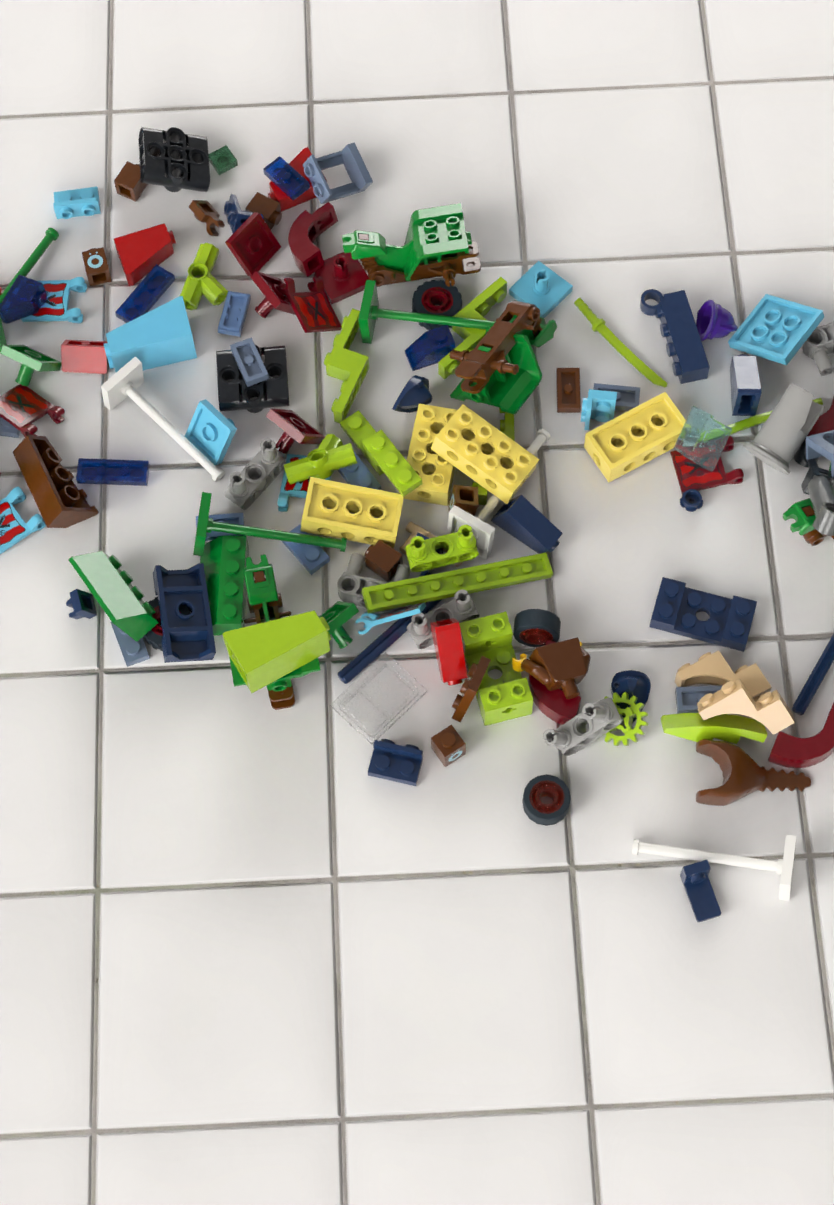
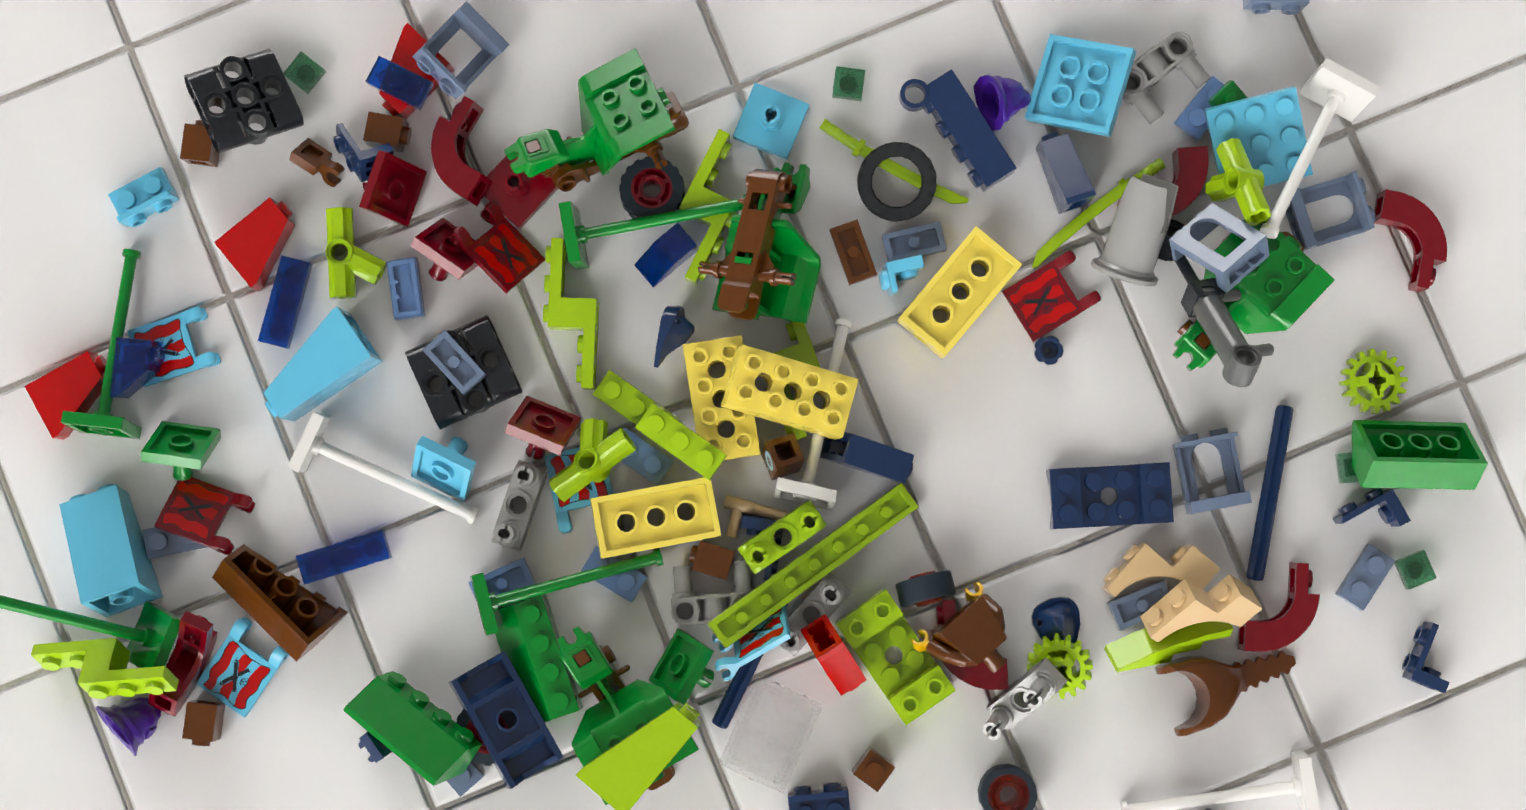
camera: 15 degrees left, 20 degrees up
(84, 356) = (242, 411): panel -> none
(96, 266) = (207, 282): reddish brown brick -> none
(469, 688) = (878, 702): reddish brown plate -> none
(606, 281) = (848, 83): none -> clear green plate
(615, 330) = (928, 181): none -> black tyre
(702, 439) = (1041, 273): clear light blue slope -> none
(783, 644) = (1229, 458): none -> sand blue panel

